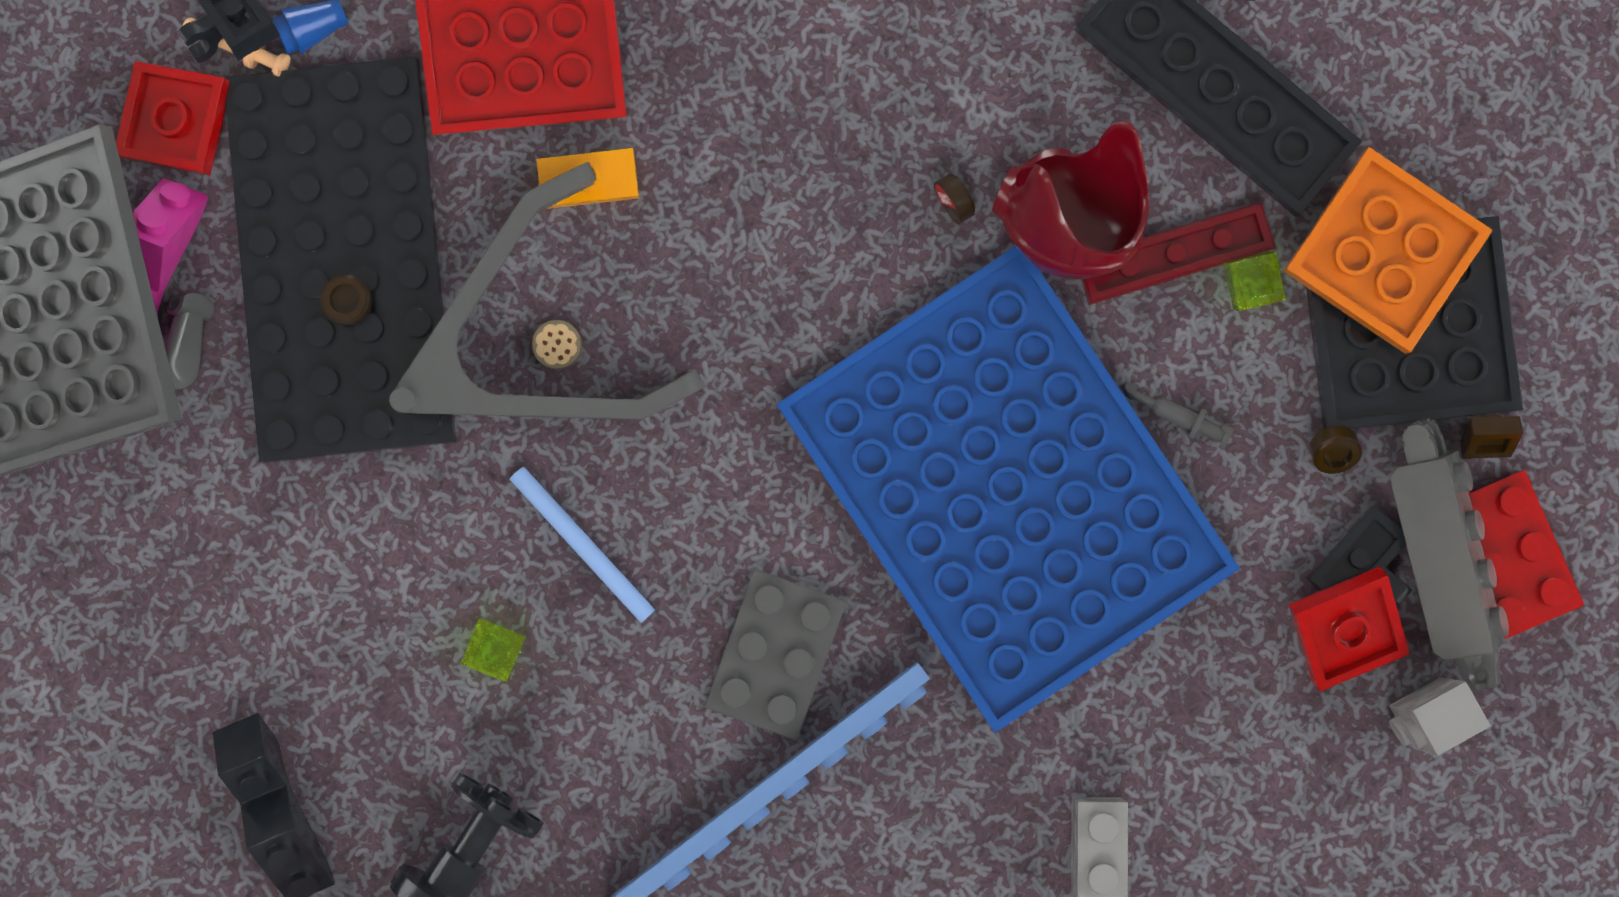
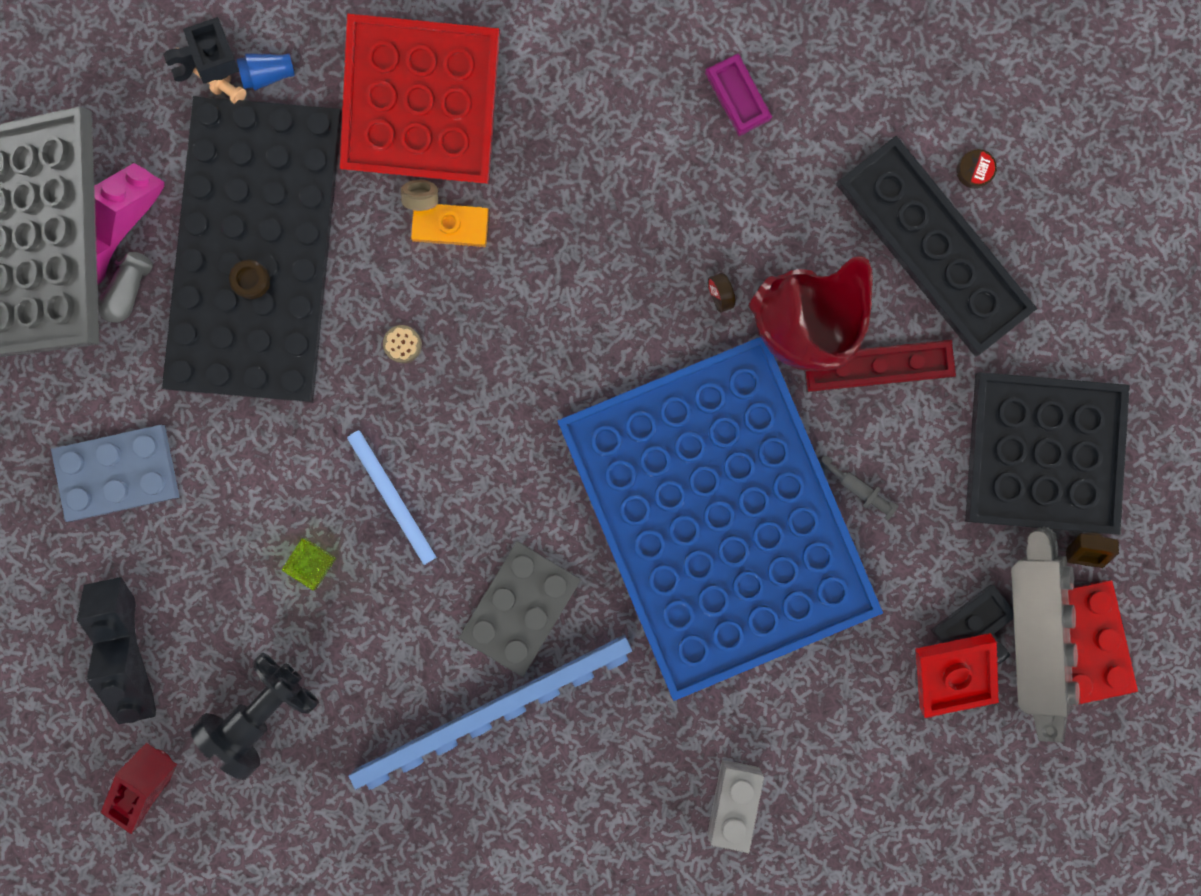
camera: 10 degrees right, 0 degrees up
(172, 118) = (149, 119): red plate -> none
(220, 583) = (115, 473): none -> sand blue plate
(435, 376) = (303, 351): dark grey piece -> none
(541, 148) = (419, 195): none -> dark tan tile
(1254, 281) = (935, 398): clear neon green plate -> none
(1335, 449) = (972, 537): dark brown tile -> none
(1387, 250) = (1042, 394): orange plate -> none
(1438, 716) = (1013, 756): light grey brick -> none

